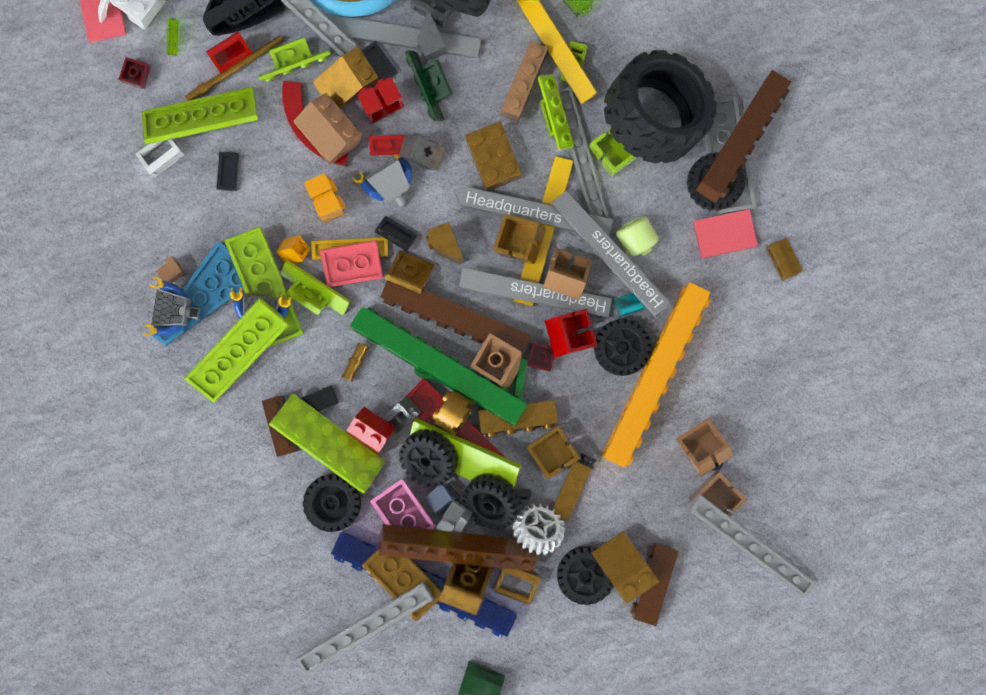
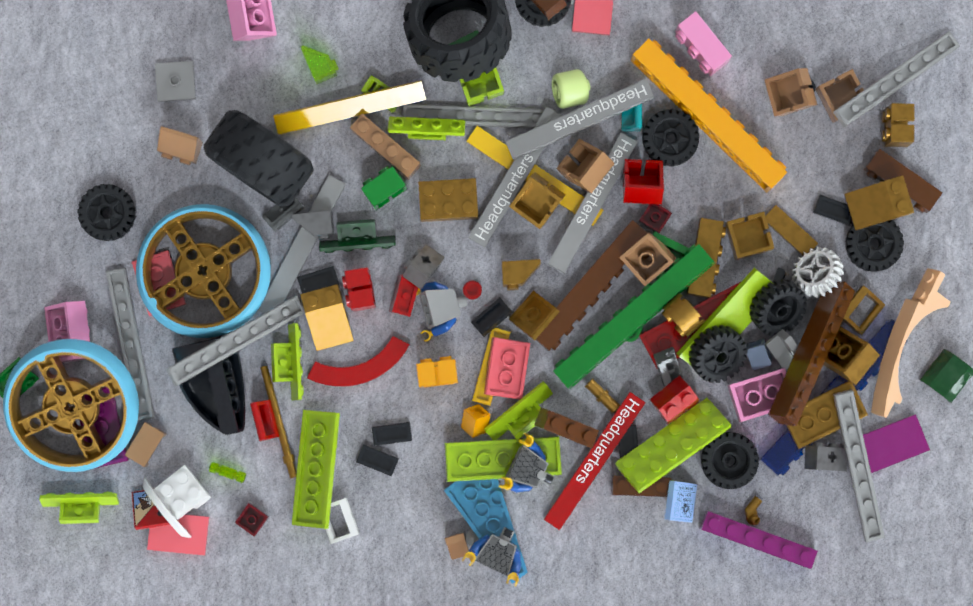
camera: 65 degrees left, 0 degrees up
(237, 350) = (557, 502): lime tile -> none
(256, 176) = (391, 433): none -> black tile
(264, 554) = (758, 539): none -> magenta brick
(276, 468) = (680, 501): none -> light blue tile
(289, 539) = (751, 512): none -> pearl gold arm
(308, 379) = (594, 460): none -> red tile
(311, 336) = (566, 427): none -> reddish brown brick
(328, 128) = (370, 349): medium nougat slope -> none
(362, 594) = (825, 458): none -> flat silver brick
(399, 656) = (895, 443): none -> magenta tile
(416, 207) = (472, 290): none -> red plate
(482, 87) = (383, 186): none -> green piece
(542, 641) = (924, 301): none -> light nougat slope
(586, 460) = (767, 206): black bush -> none
(604, 525) = (833, 210): none -> black tile
(702, 562) = (897, 131): none -> pearl gold piece
(722, 347) = (702, 44): none -> bright pink brick

